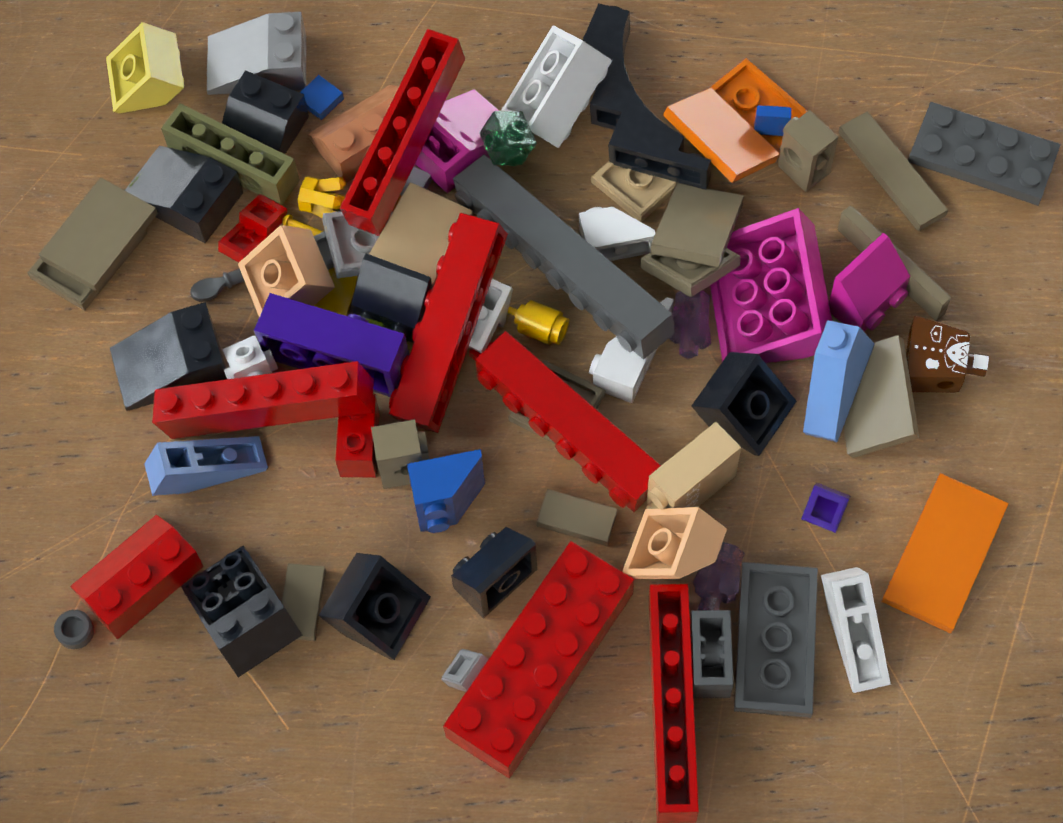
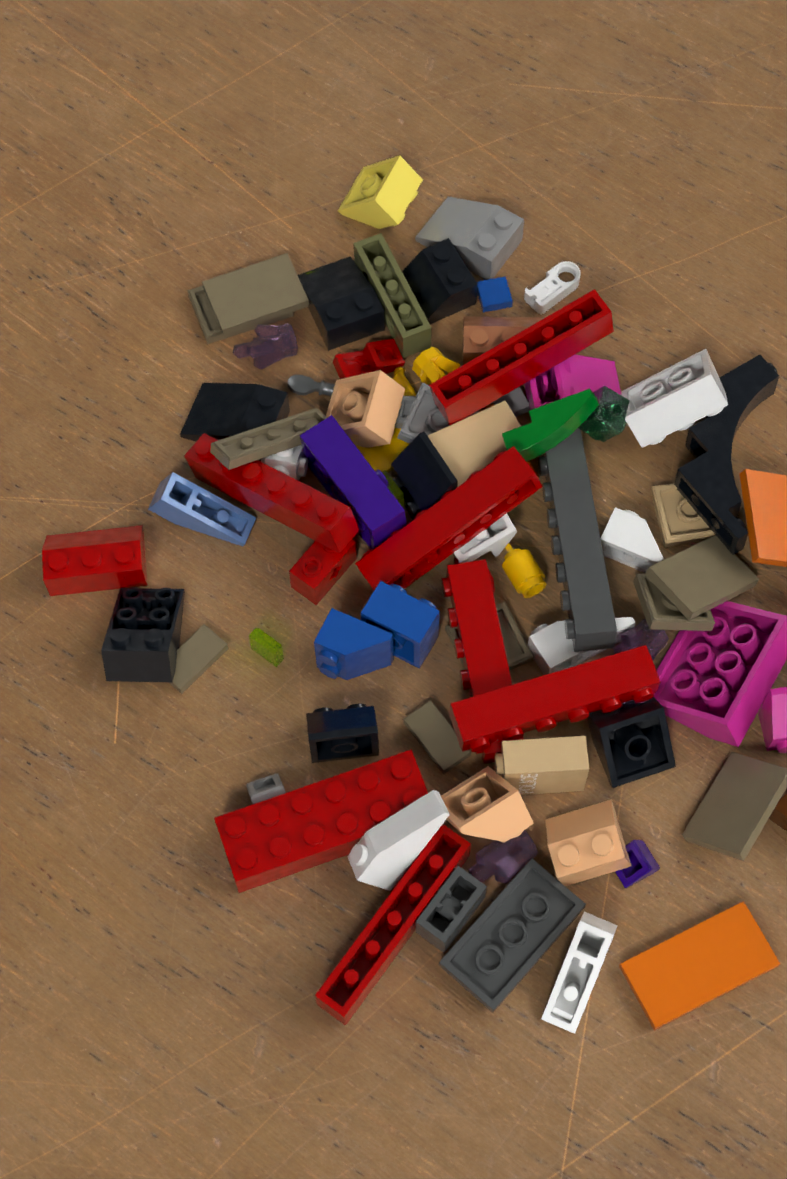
camera: 35 degrees right, 0 degrees up
(74, 629) = (26, 568): dark grey tile -> none
(149, 272) = (270, 346): none -> rock
(223, 355) = (265, 439): none -> dark tan tile
(363, 542) = (266, 646): none -> clear neon green tile
(368, 60) = (552, 289): none -> white piece
(375, 605) = (240, 698): black slope -> none
(395, 448) = (338, 591): dark tan brick -> none
(473, 174) = (551, 424): none -> green slope
(475, 428) = (407, 618): none -> blue brick
(623, 628) = (396, 842): none -> white slope
(660, 411) = (554, 698): none -> red brick
(778, 515) = (586, 843): none -> light nougat slope
(835, 378) = (715, 768): medium blue slope -> none

